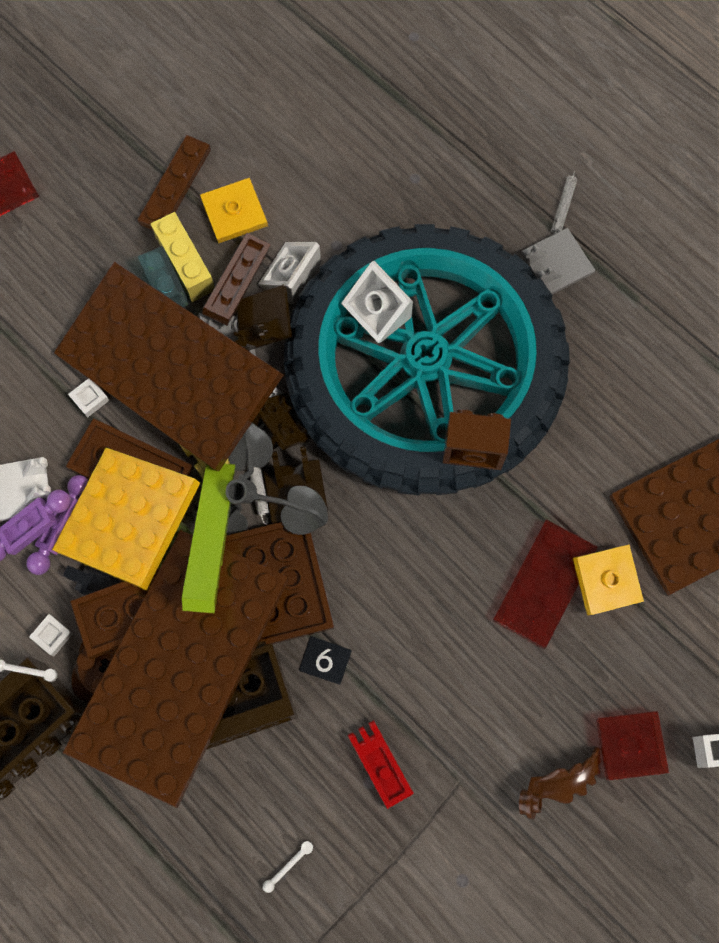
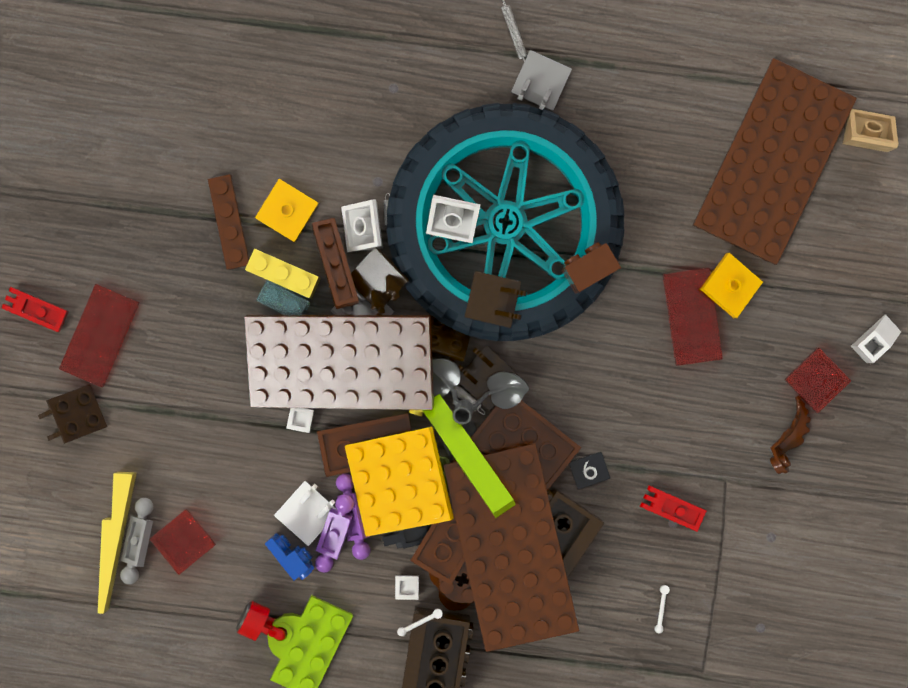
camera: 40 degrees left, 15 degrees up
(356, 407) = (493, 299): none -> dark brown plate

